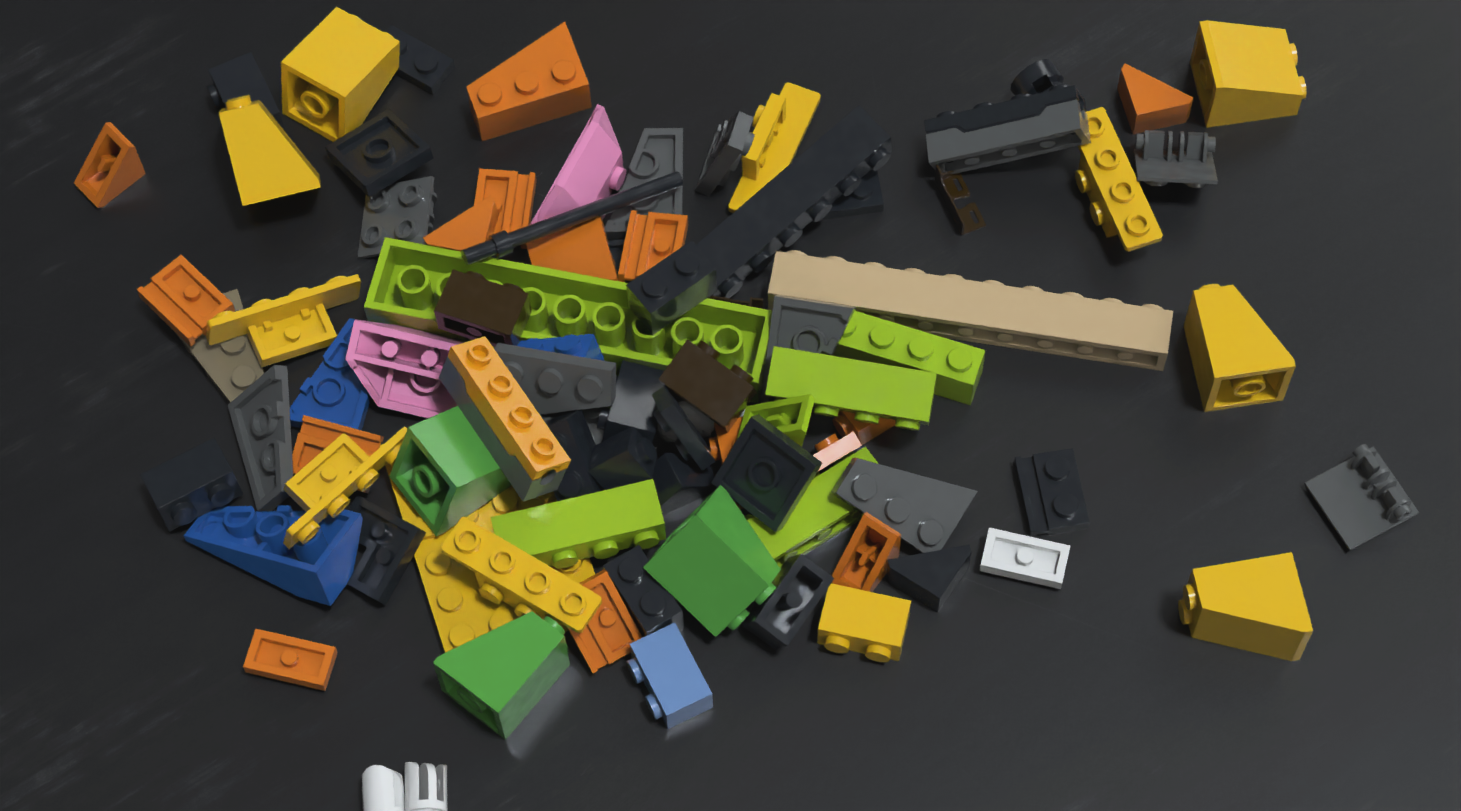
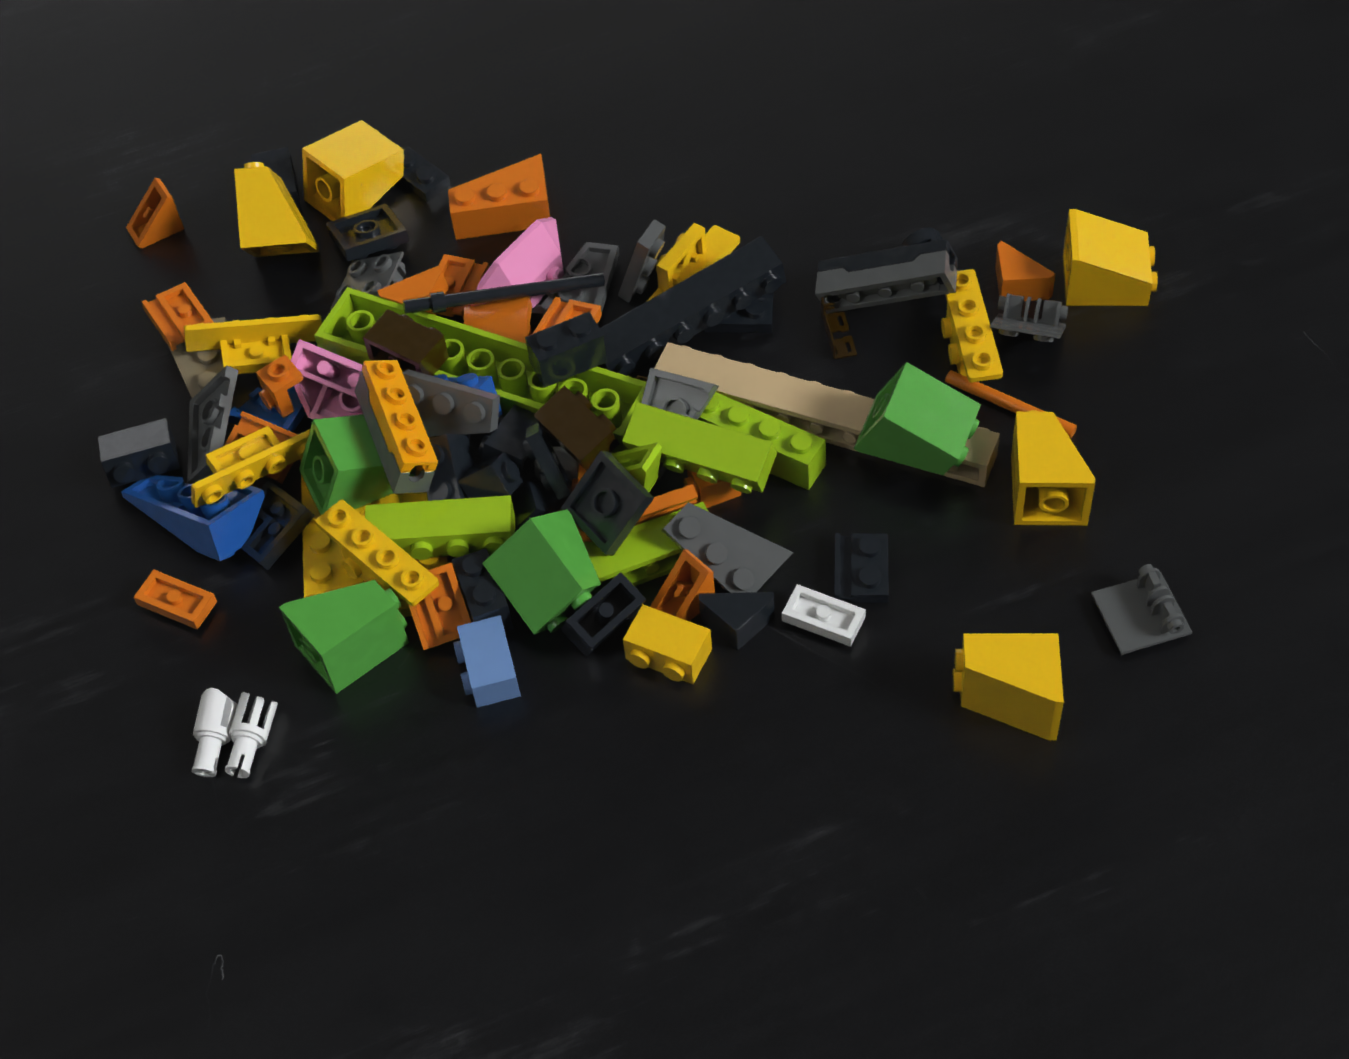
camera: 15 degrees right, 10 degrees down
(339, 375) = (275, 381): none -> orange bracket
(1086, 317) = (919, 422): none -> bright green slope
(1170, 263) = (999, 398): none -> orange bar

